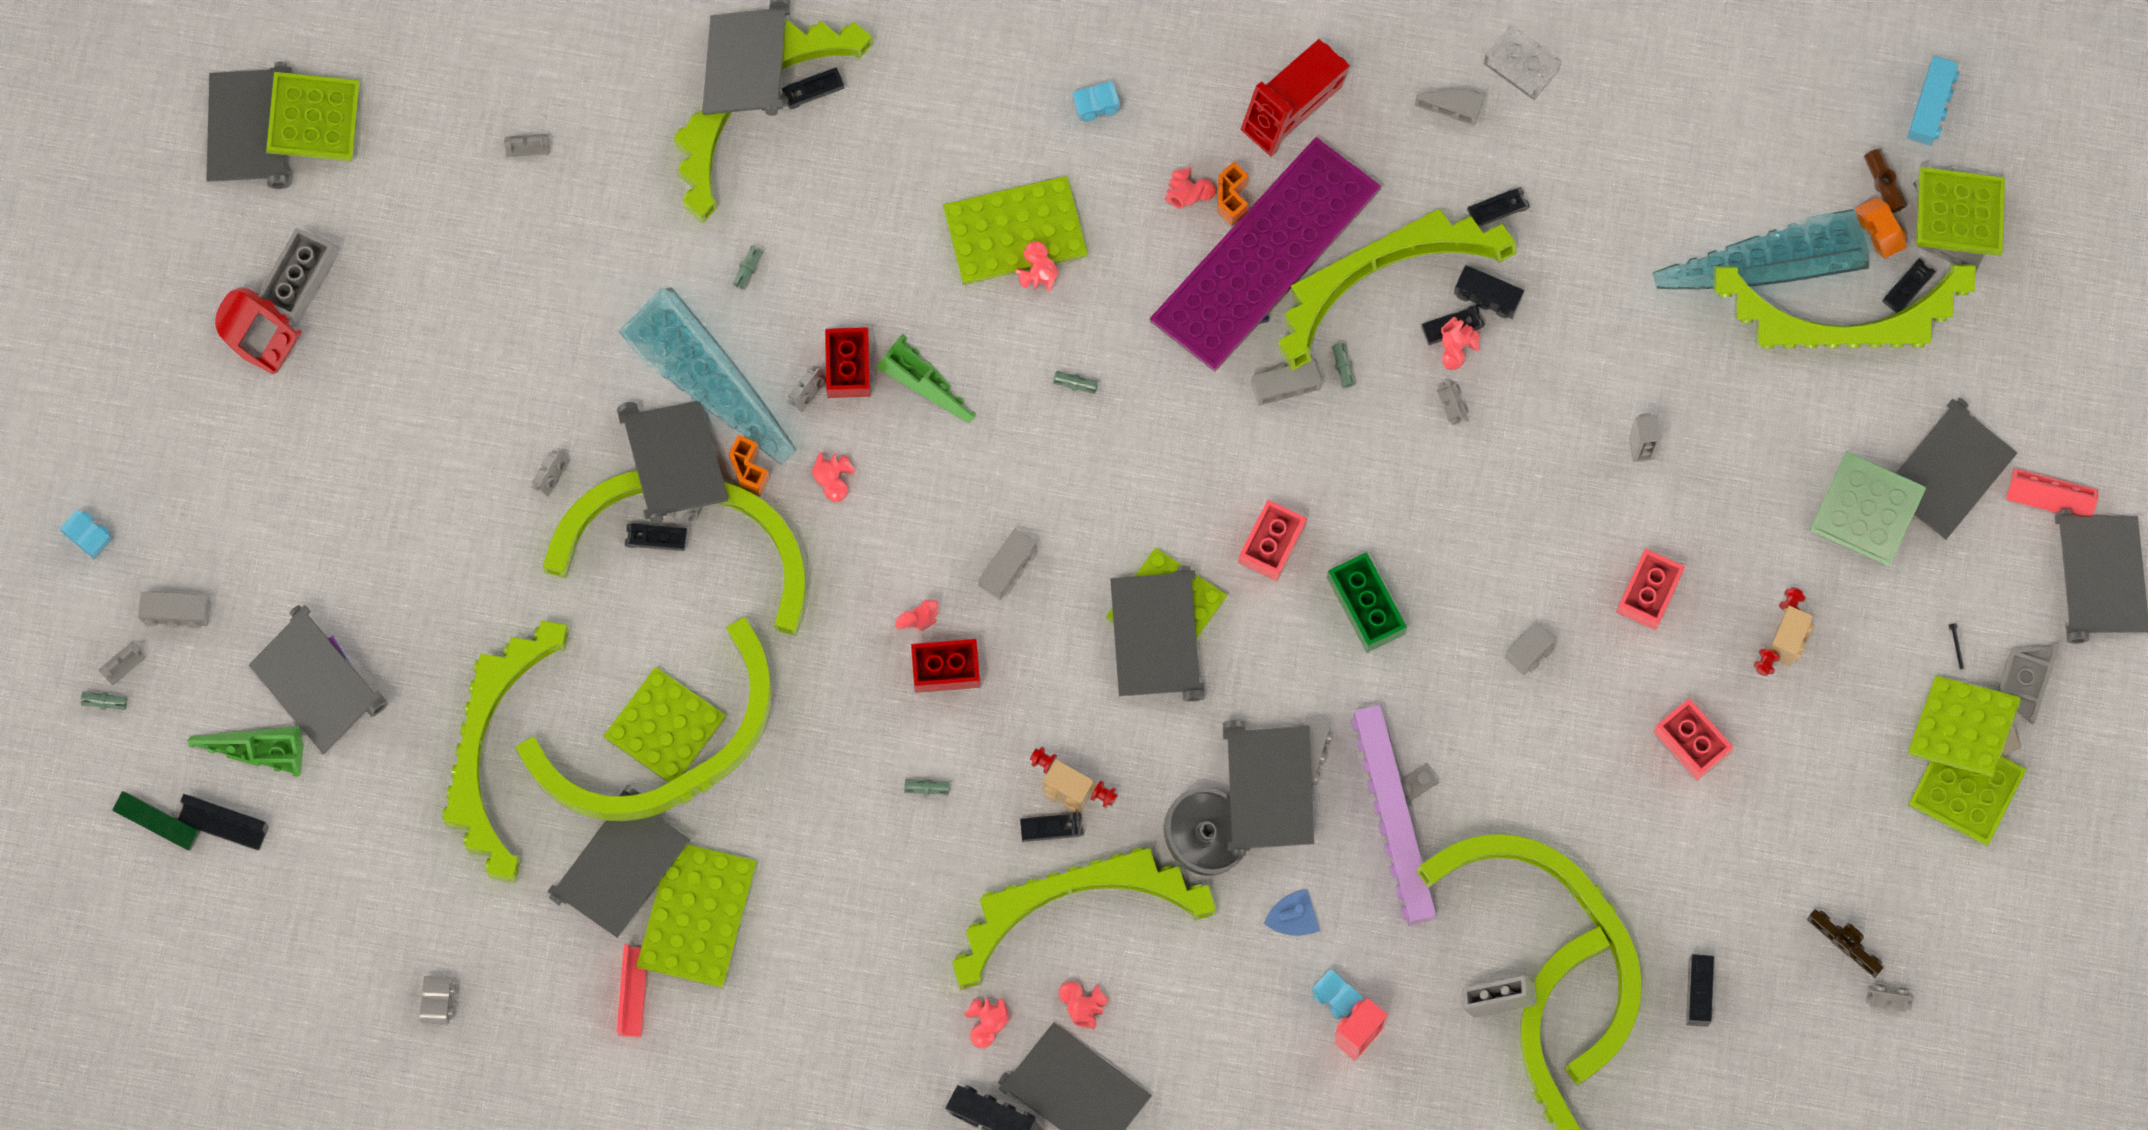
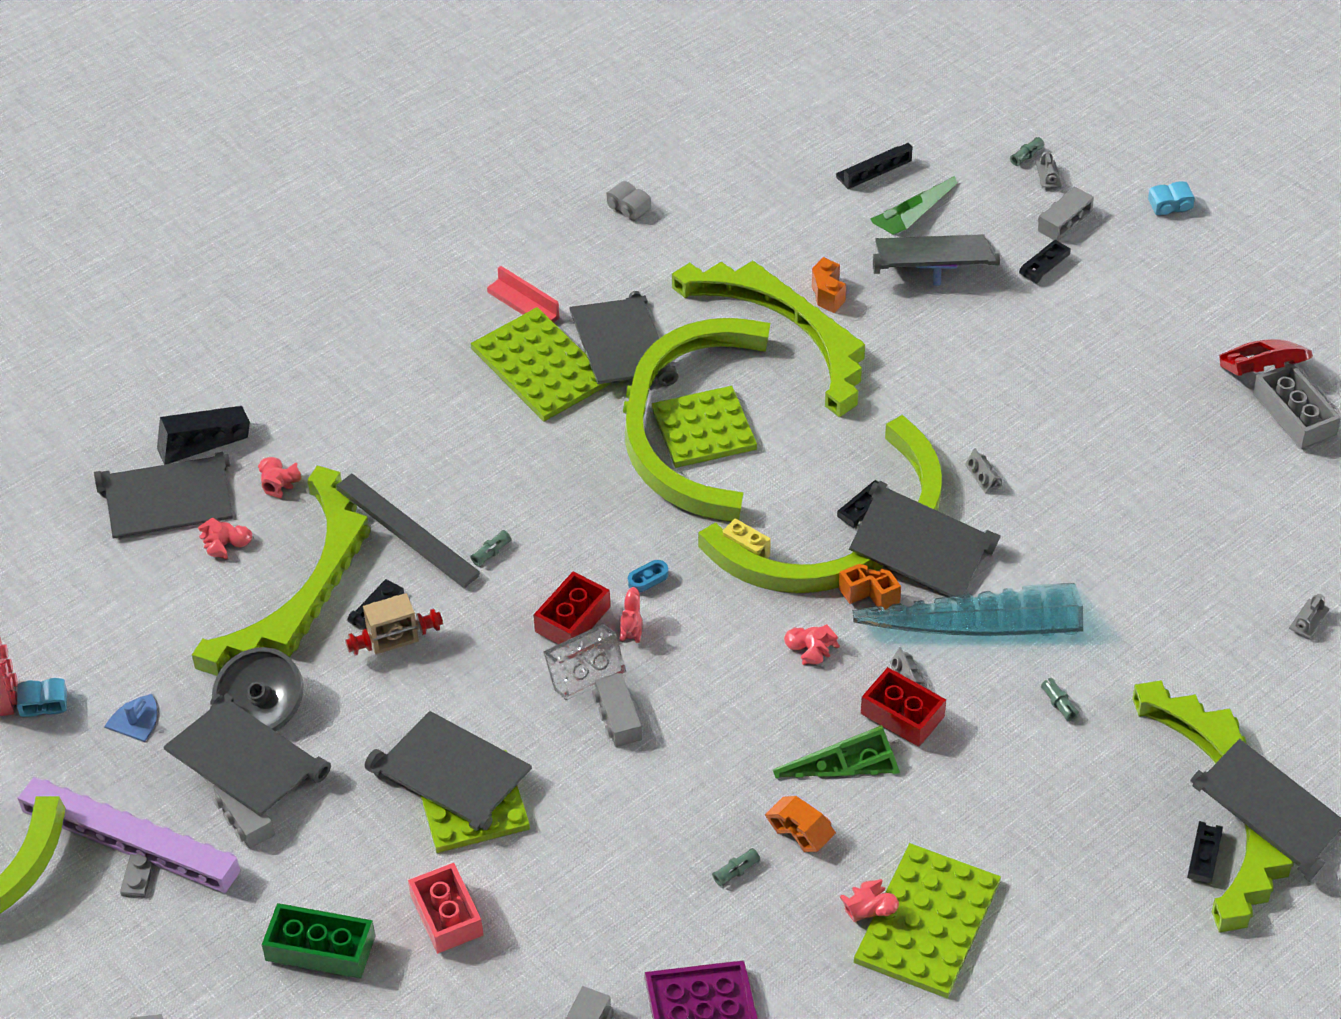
camera: 130 degrees right, 25 degrees down
(156, 820) = (909, 135): dark green tile -> none
(249, 587) = (1045, 261): none -> black plate
(418, 751) = (828, 289): none -> orange brick
(771, 590) = (748, 538): none -> light yellow bracket
(861, 644) = (647, 576): none -> dark azure plate
(965, 859) = (408, 530): none -> dark grey tile
(990, 612) = (584, 659): none -> clear brick
(1008, 360) = (803, 821): none -> orange brick

